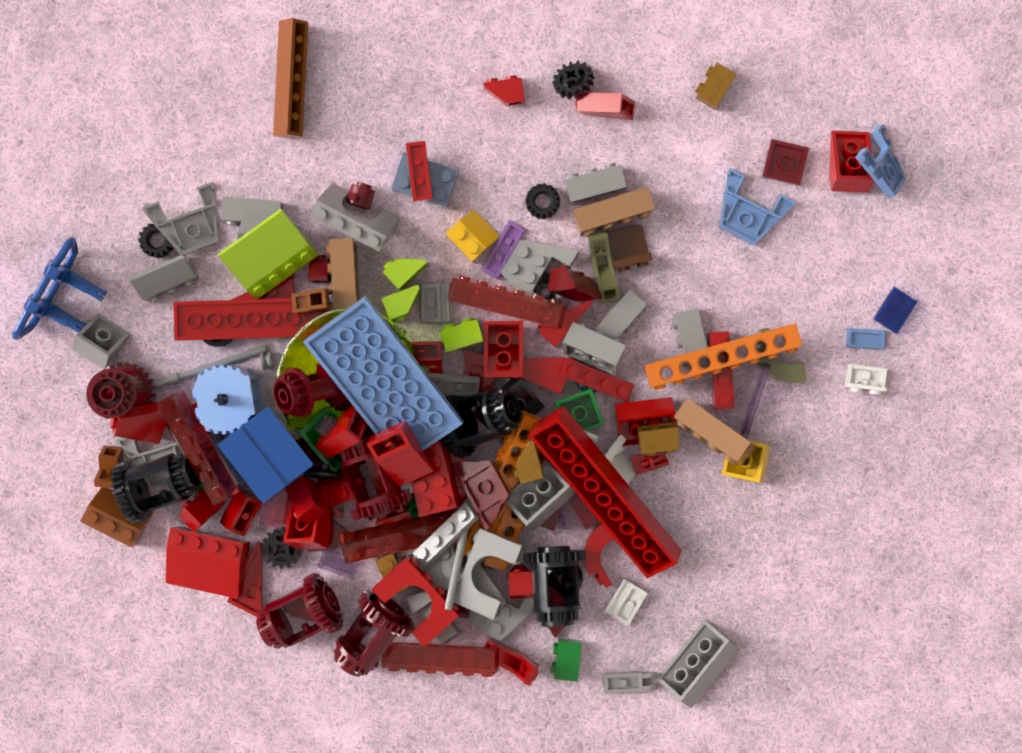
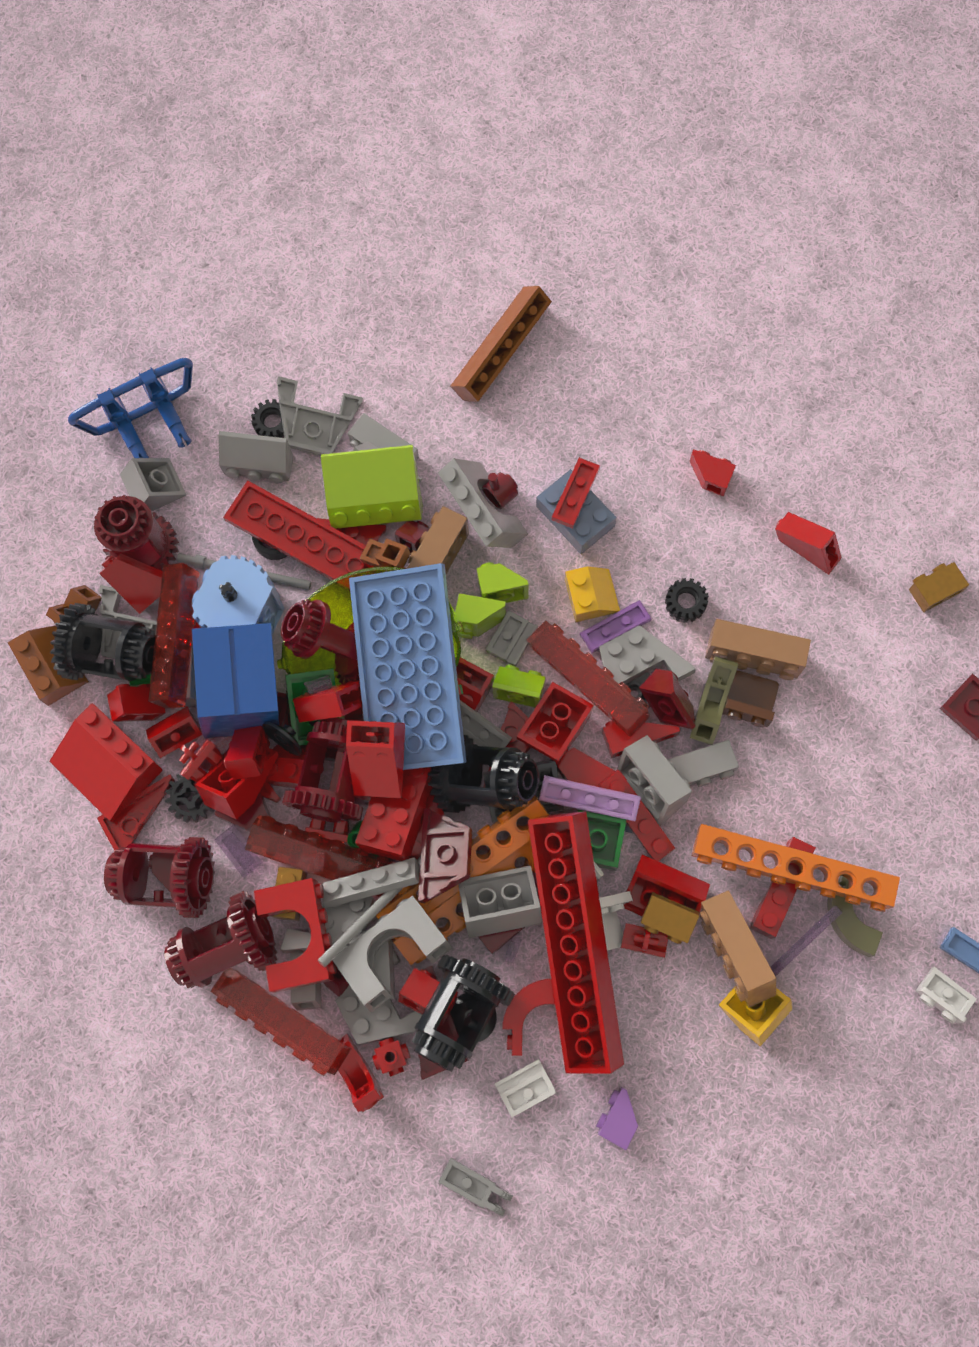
camera: 40 degrees right, 15 degrees down
(266, 360) = (301, 594): light grey bush -> none
(269, 522) = (206, 752): none -> red hips
(527, 628) = (401, 1055): none -> red brick
(529, 465) = (509, 855): pearl gold slope -> none
(558, 389) = (589, 798): none -> lavender tile
(567, 659) = (419, 1113): green brick -> none
(573, 80) = (789, 498): black gear -> none
(583, 512) = (538, 951): dark red brick -> none
(595, 183) = (753, 611): light grey brick -> none
(690, 334) = (770, 824): light grey brick -> none
(698, 664) = (566, 1216): light grey slope -> none
(699, 587) = (620, 1121): none -> medium lavender slope
(746, 218) = (899, 741): medium blue wing -> none

